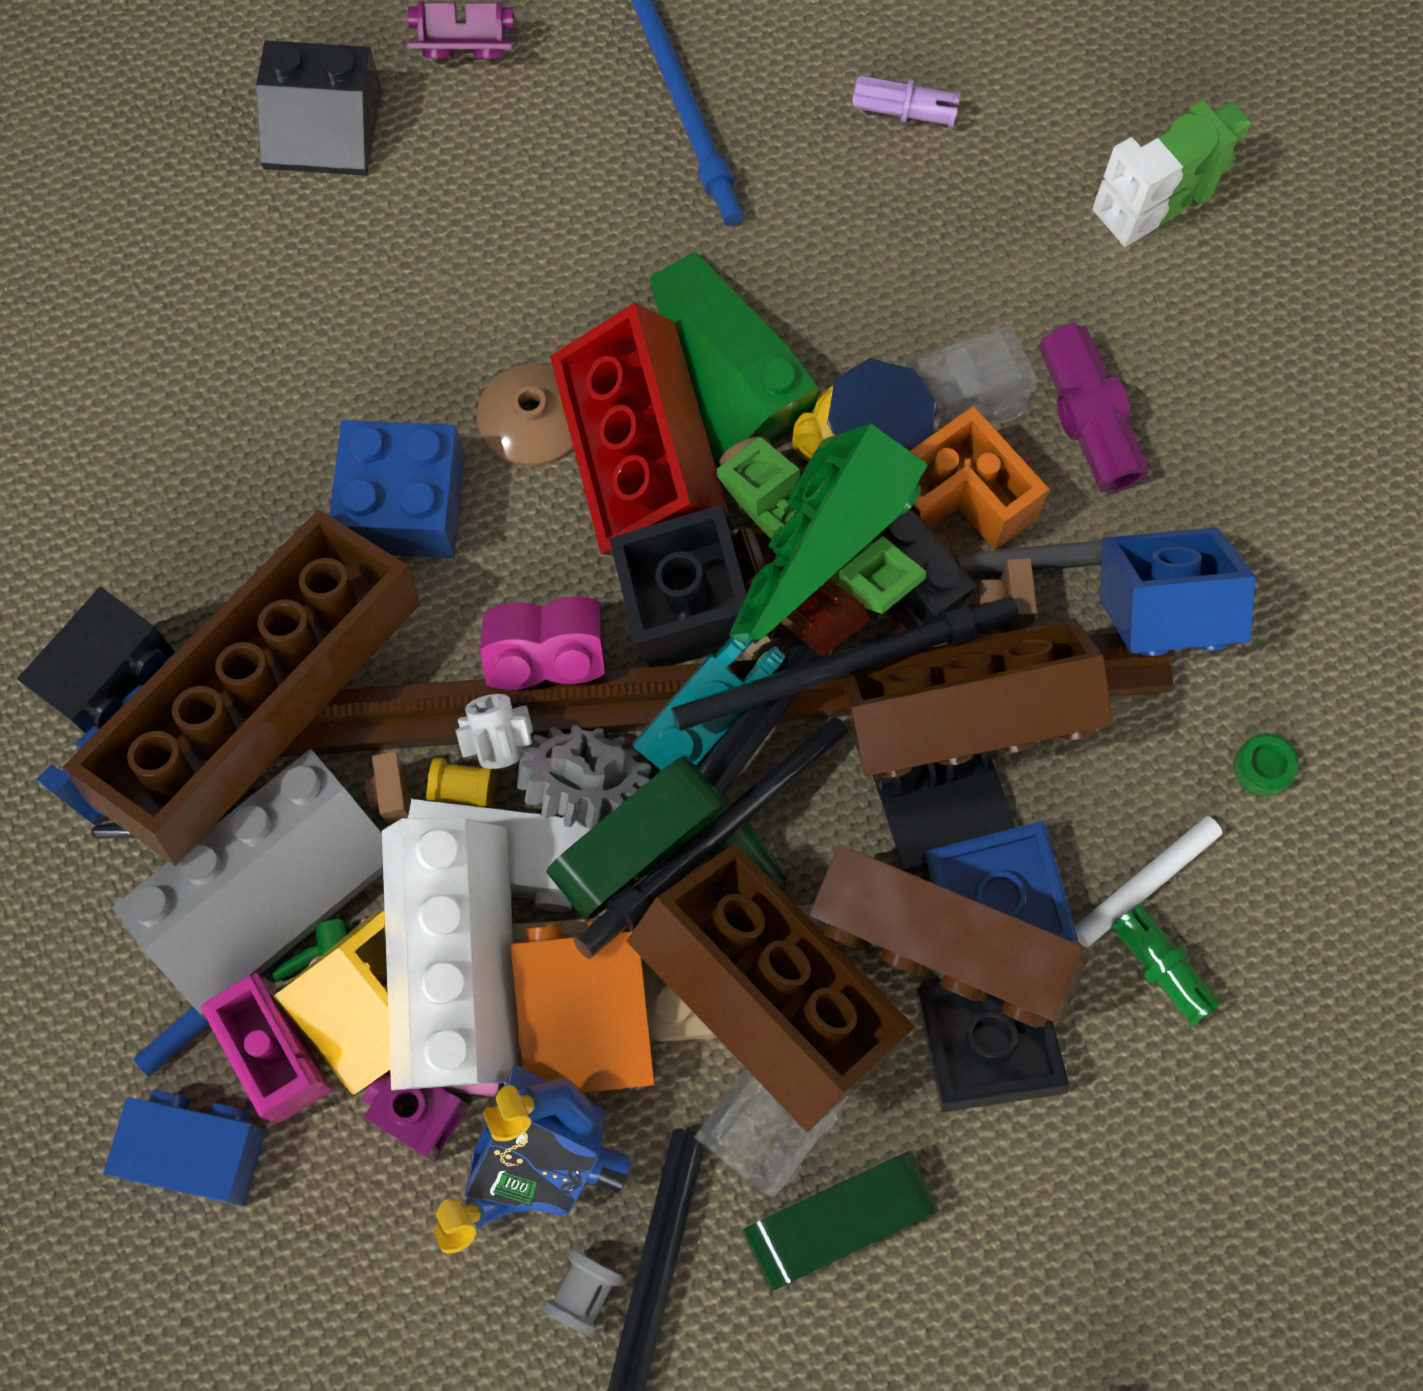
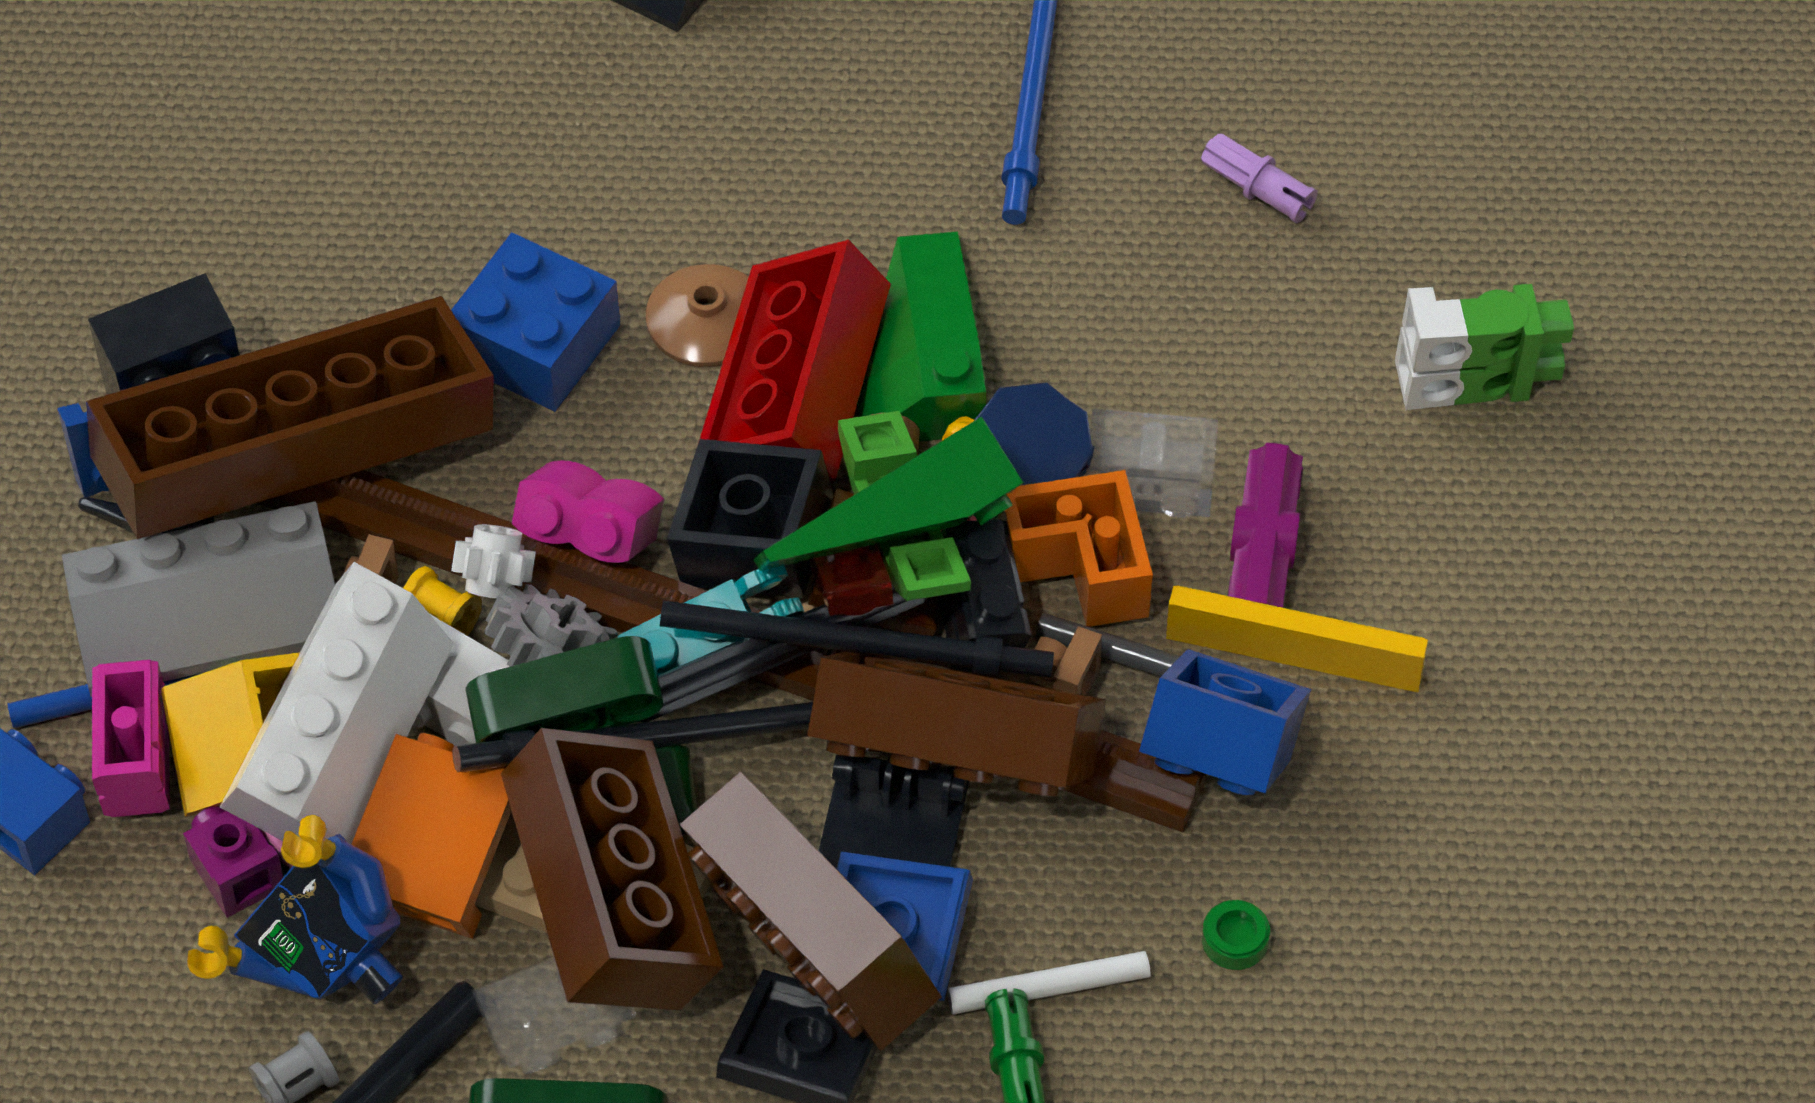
camera: 25 degrees right, 15 degrees down
(1170, 484) = (1296, 638): none -> yellow tile

